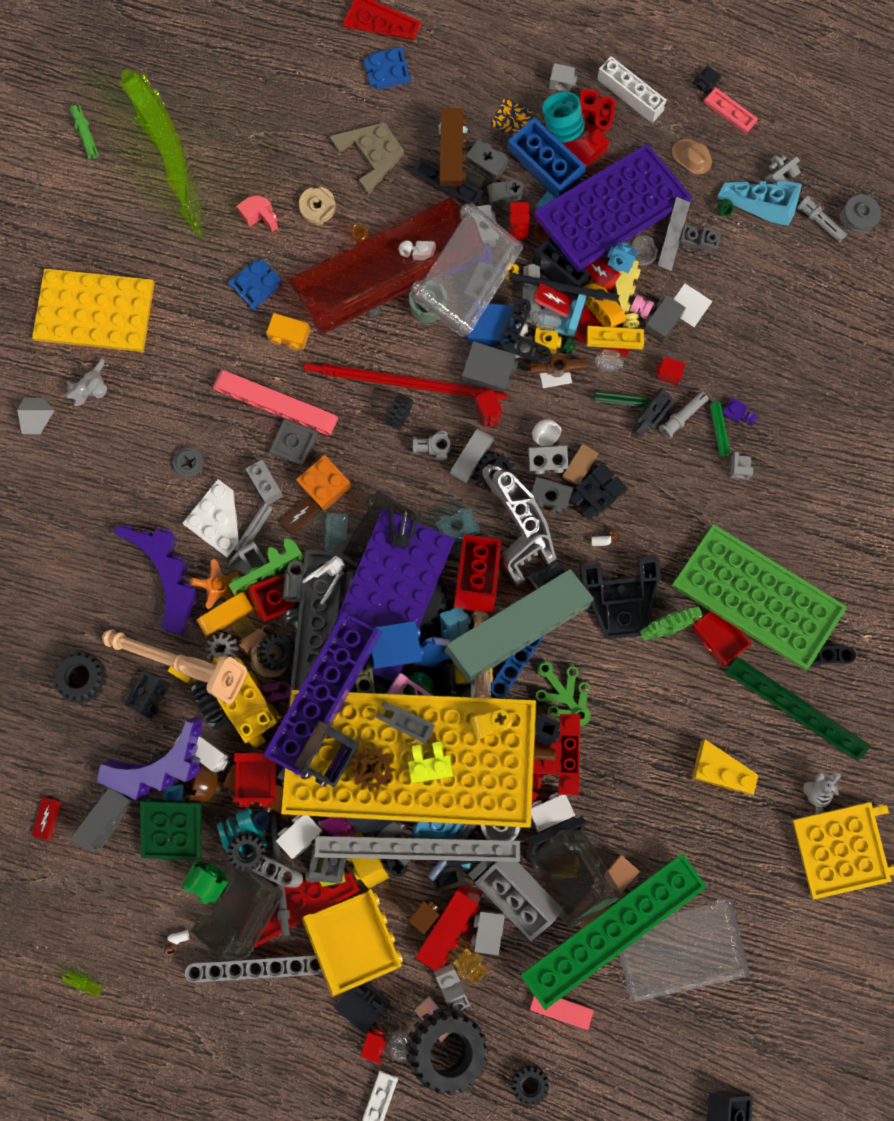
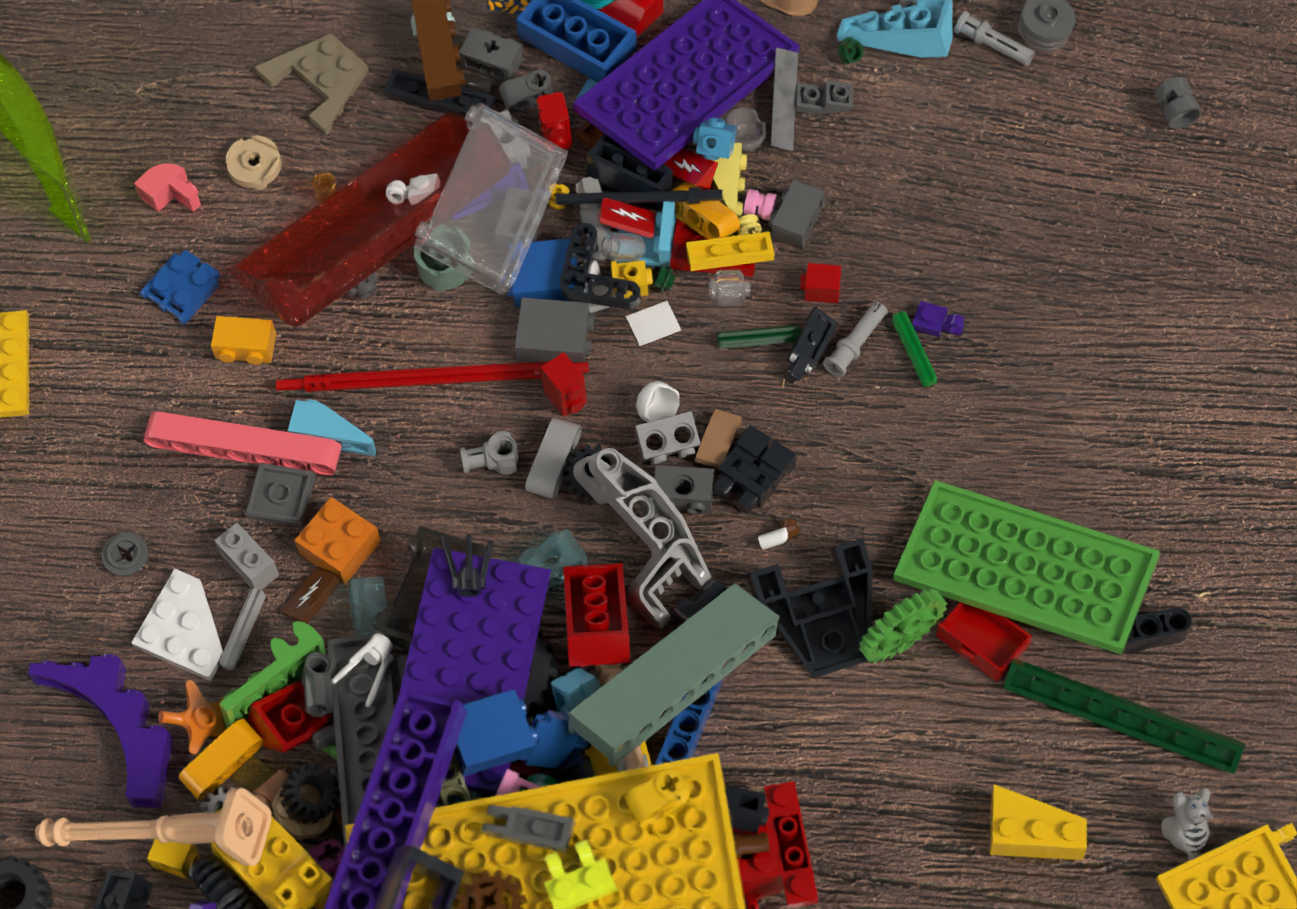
camera: 10 degrees left, 15 degrees down
(246, 559) = (237, 669): light grey slope -> none
(326, 399) = (318, 420): none -> medium azure slope
(399, 411) = (431, 416): black tyre -> none
(565, 695) = (769, 771): bright green plant -> none
(566, 363) = (666, 305): reddish brown pin -> none
(695, 304) = (837, 187): white sticker -> none
(741, 467) = (957, 394): light grey panel -> none

